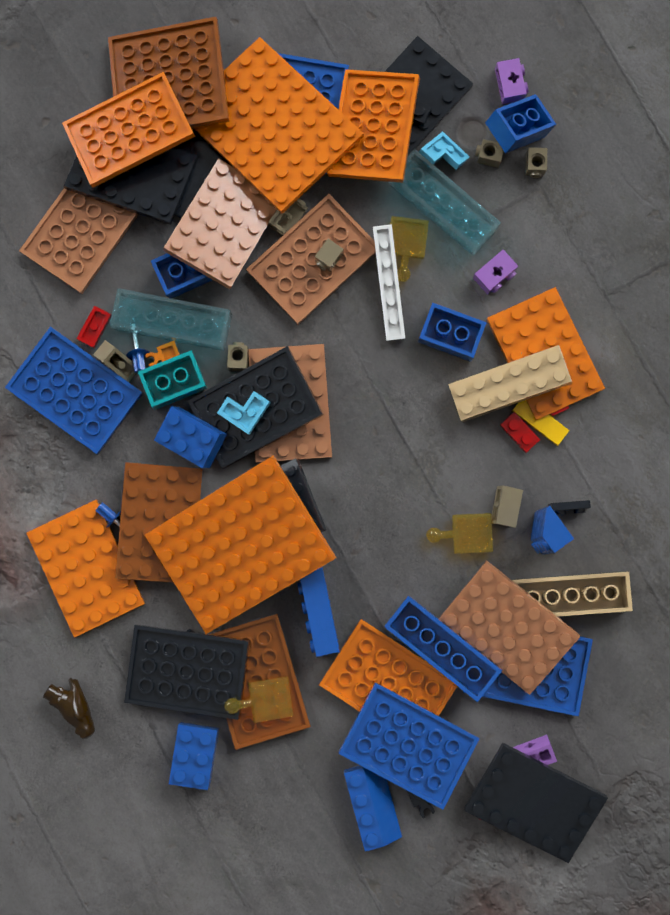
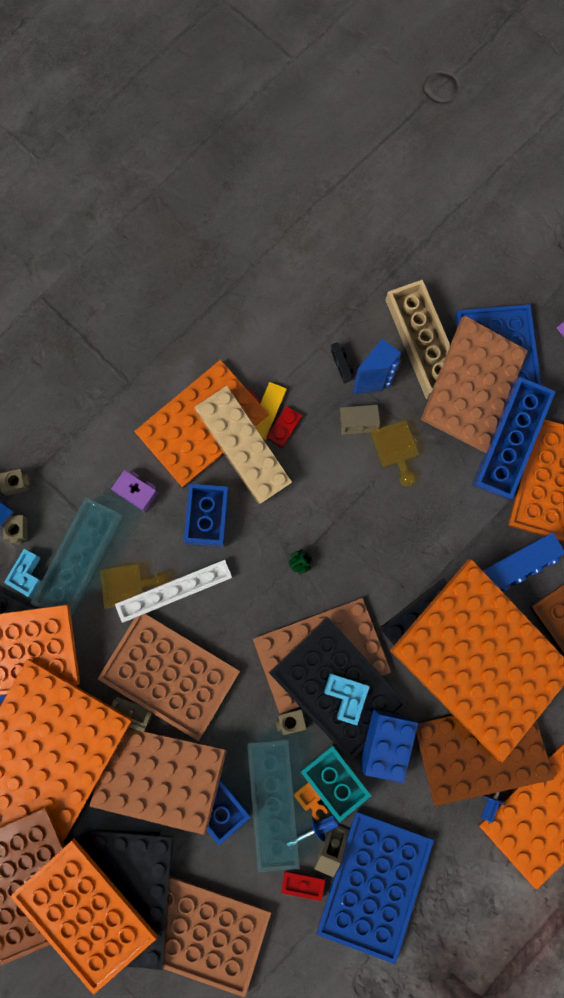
camera: 105 degrees left, 5 degrees down
(328, 255) = (163, 659): dark tan brick -> none
(382, 408) = (300, 561): none -> dark green gear

